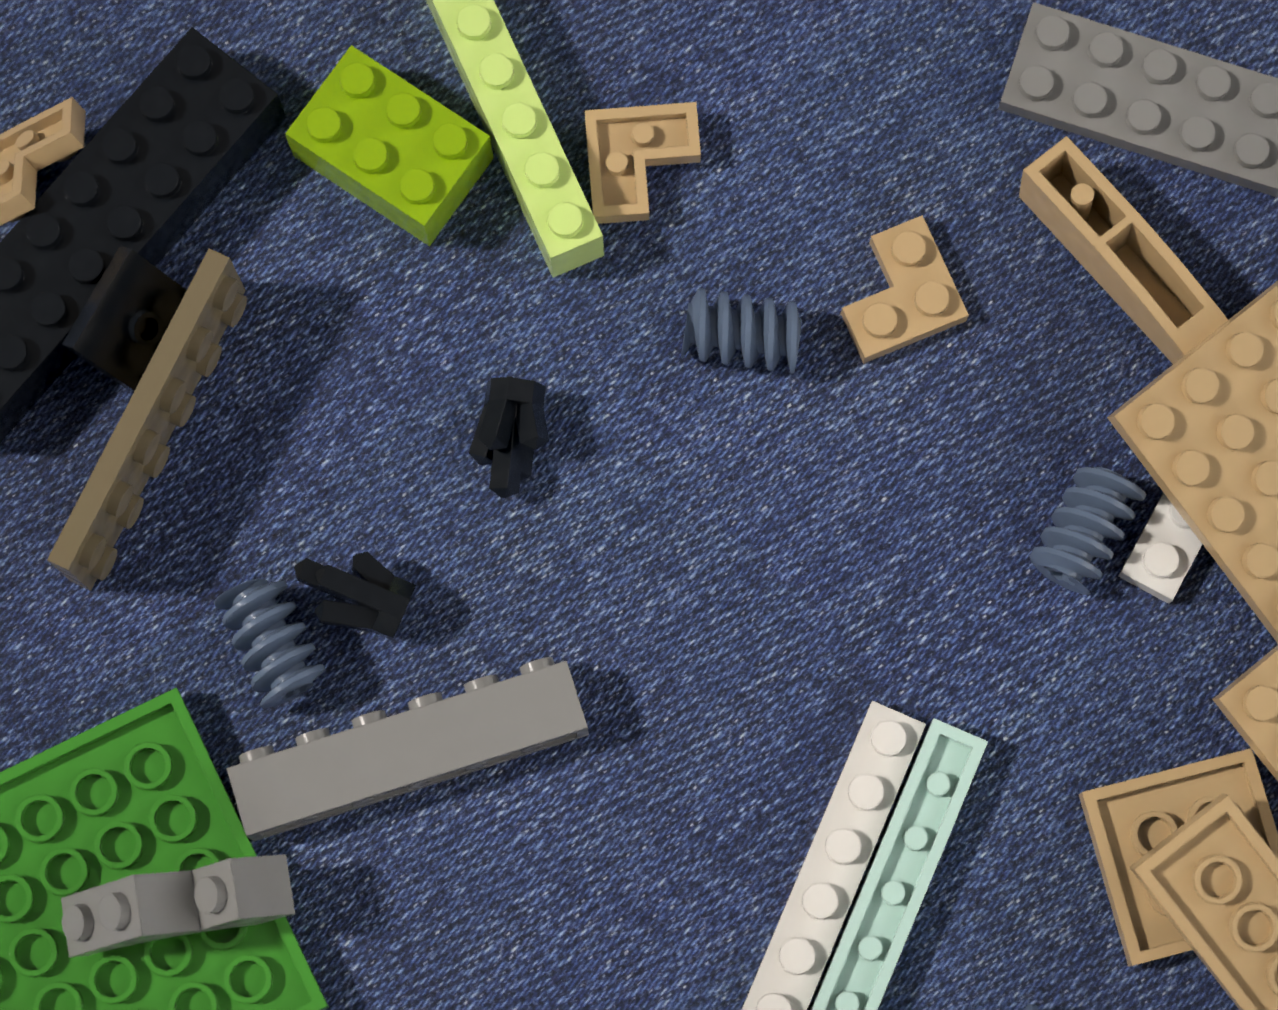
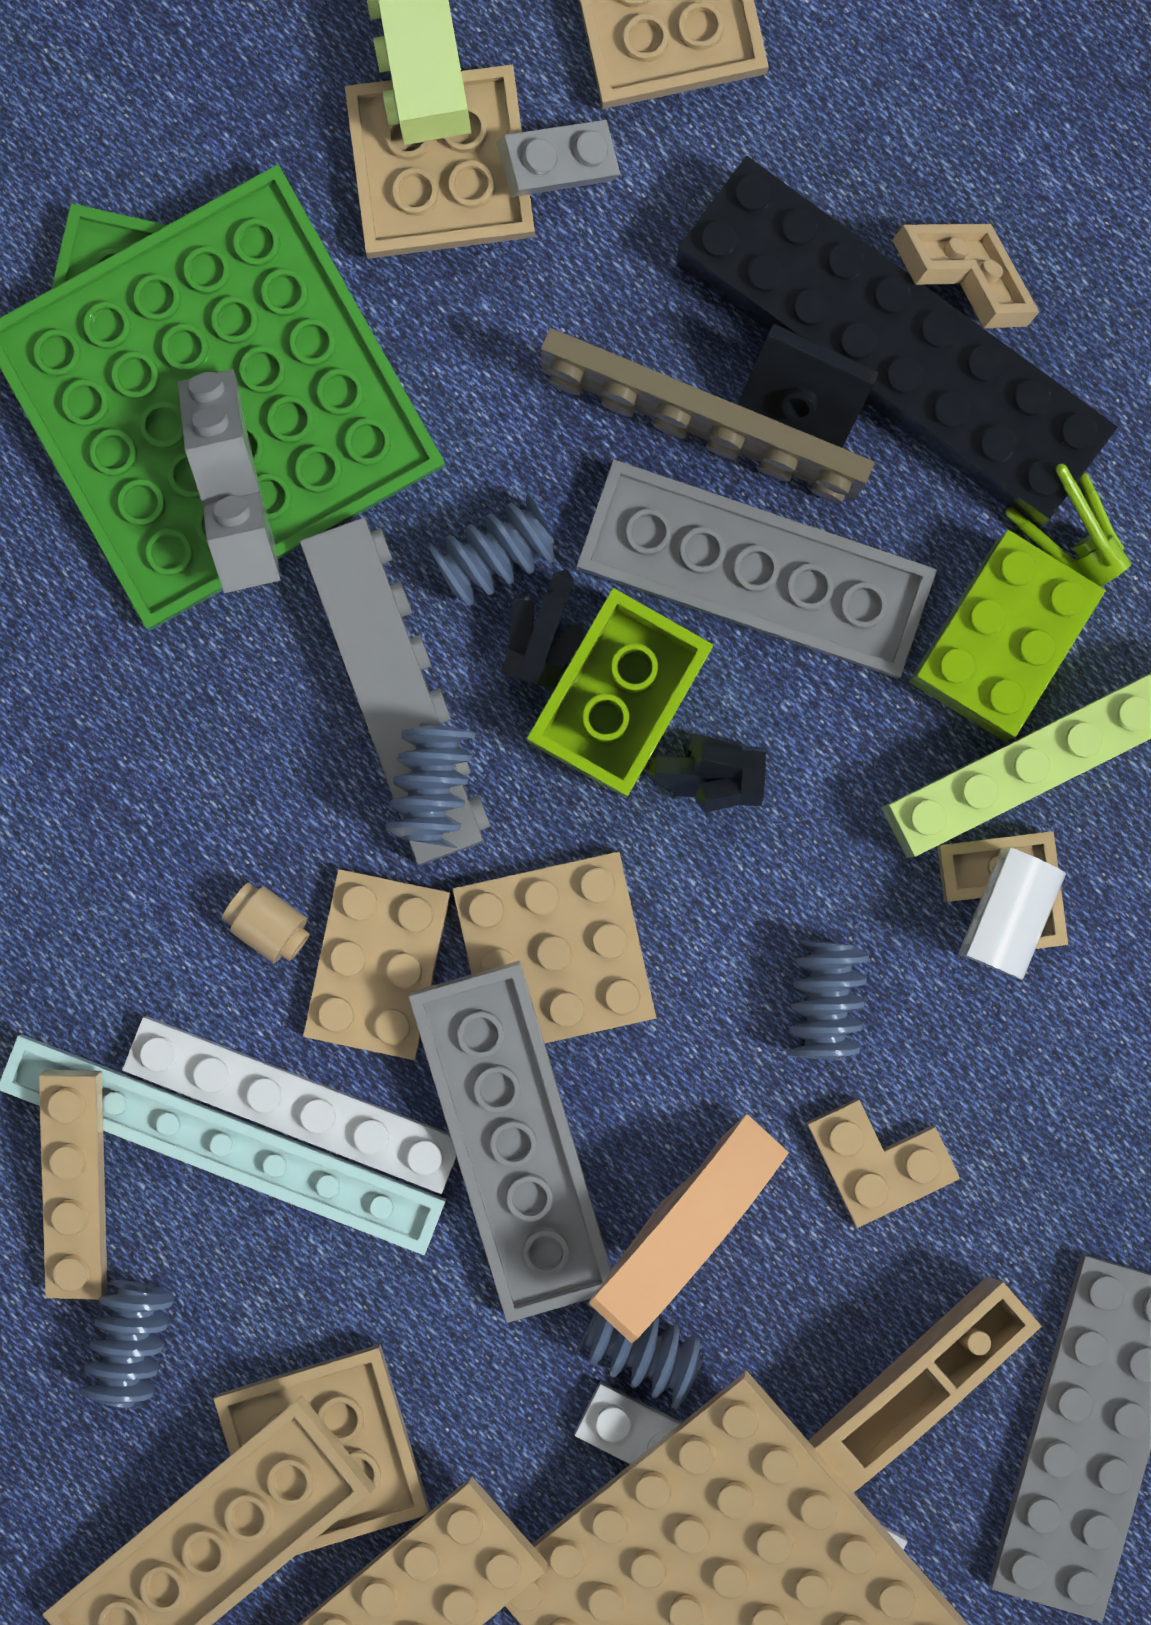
camera: 90 degrees right, 10 degrees up
(306, 385) = (756, 569): none -> light grey plate
(313, 59) = (1101, 552): none -> lime plant
(425, 518) = (619, 693): none -> lime brick
(505, 704) = (430, 784): none -> sand blue piece
(642, 891) = (266, 923): none -> tan brick
(661, 150) = (1012, 912): none -> white brick
(684, 602) = (573, 941): none -> tan plate
(688, 782) = (373, 953): none -> tan plate
(872, 645) = (512, 1140): none -> light grey plate
(964, 469) = (688, 1228): none -> light nougat slope

